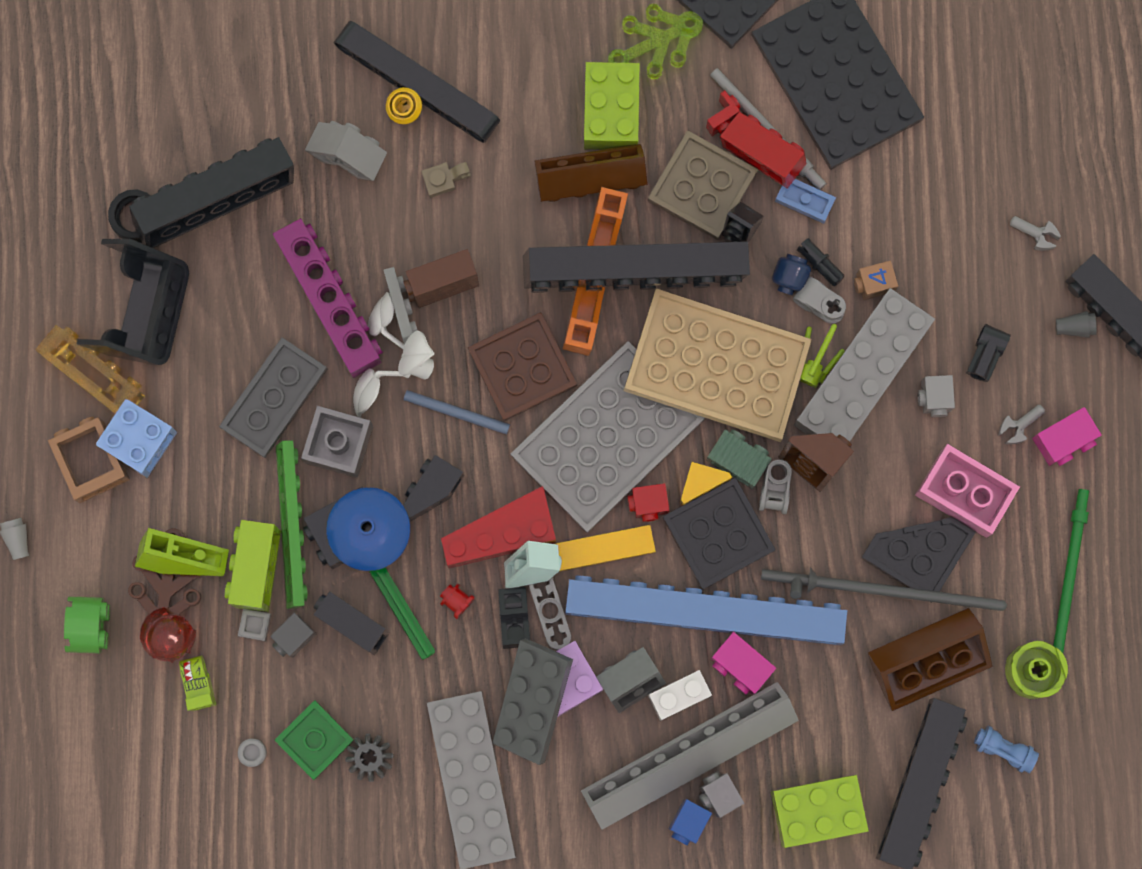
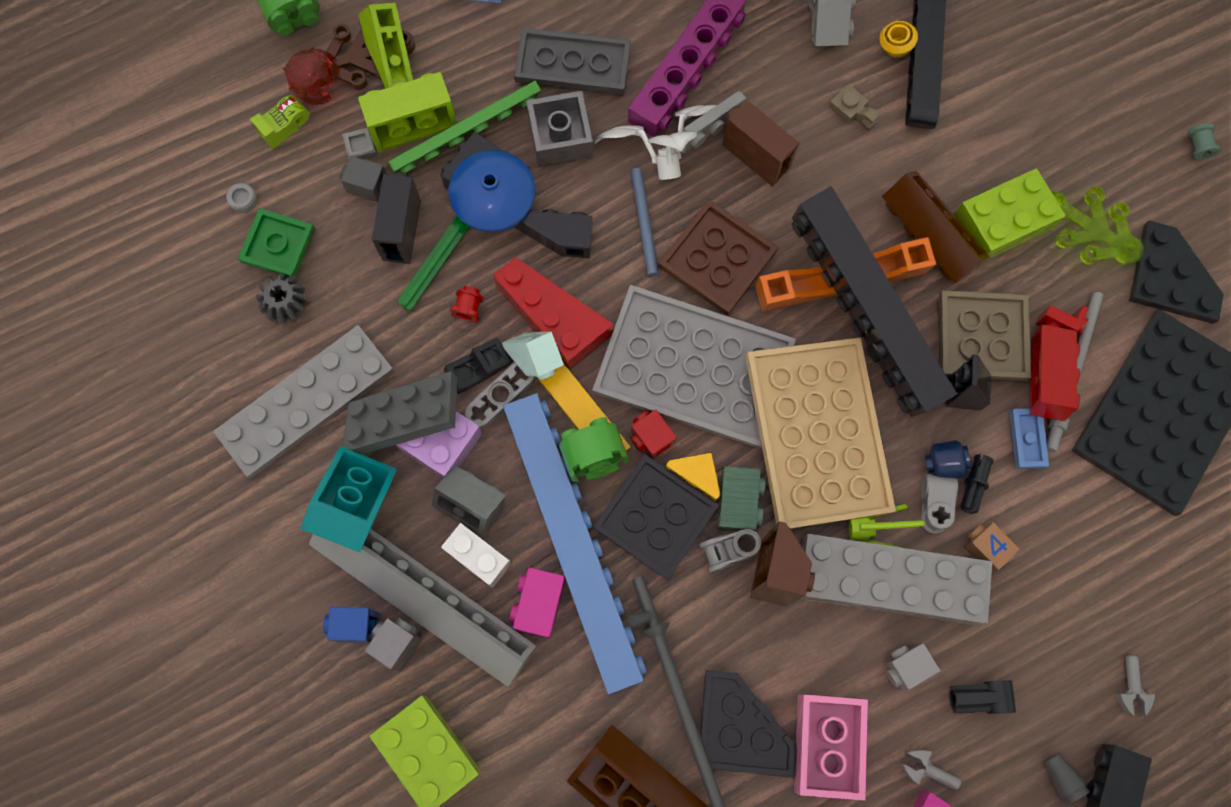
camera: 60 degrees right, 5 degrees down
(586, 774) = (348, 499): none -> teal brick
(644, 556) = (593, 450): none -> bright green brick

